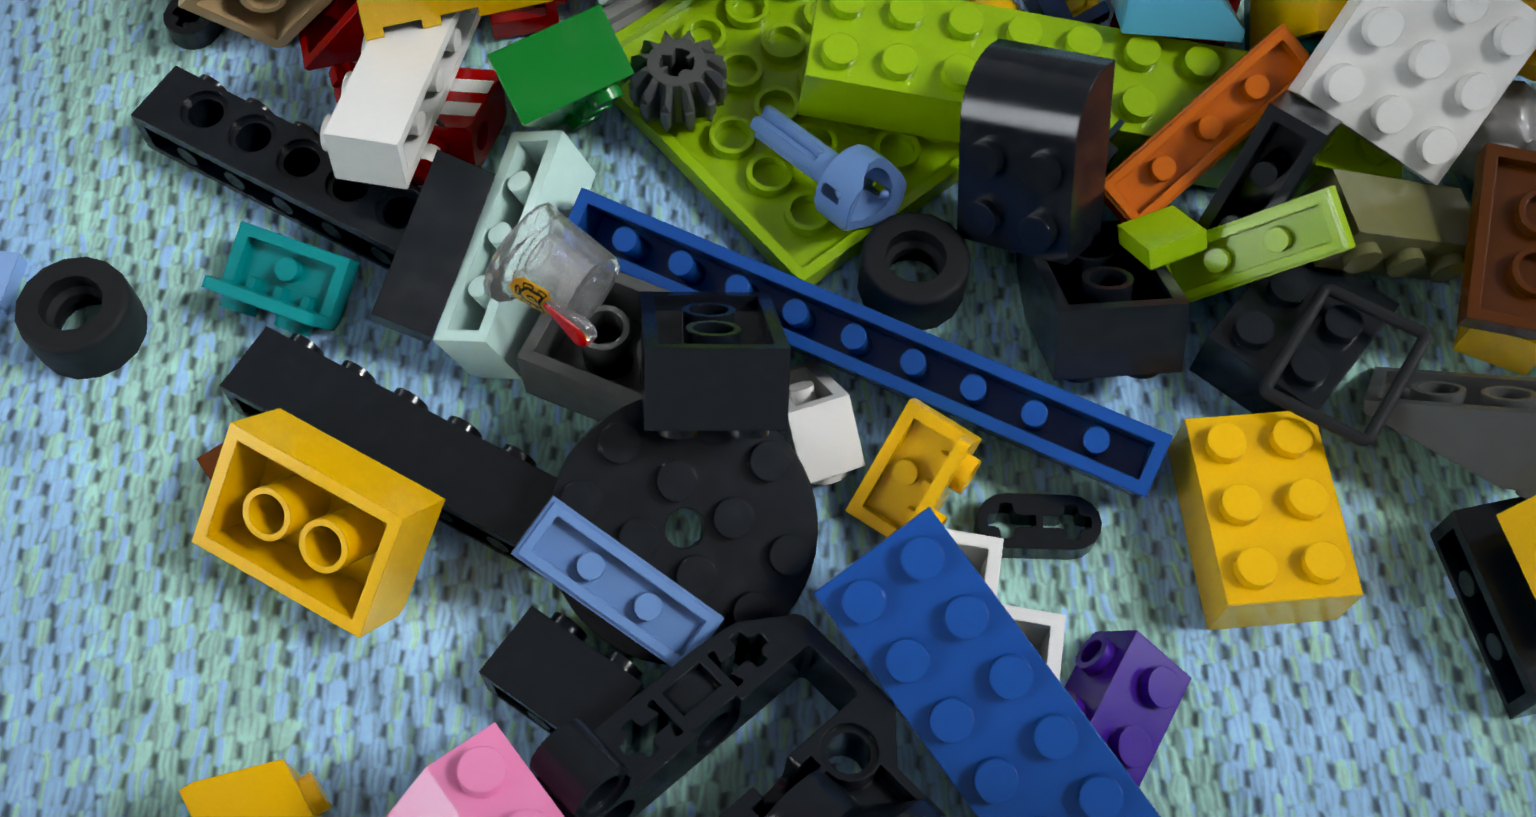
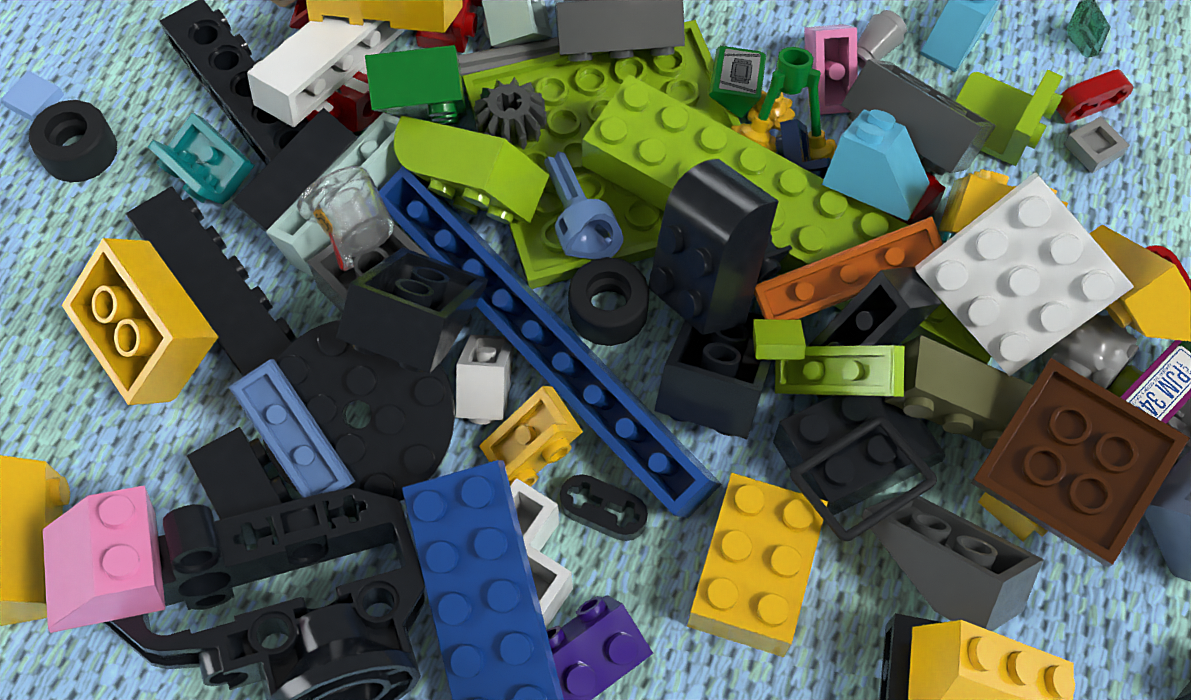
camera: 25 degrees right, 0 degrees up
(670, 161) = (471, 169): none -> lime brick

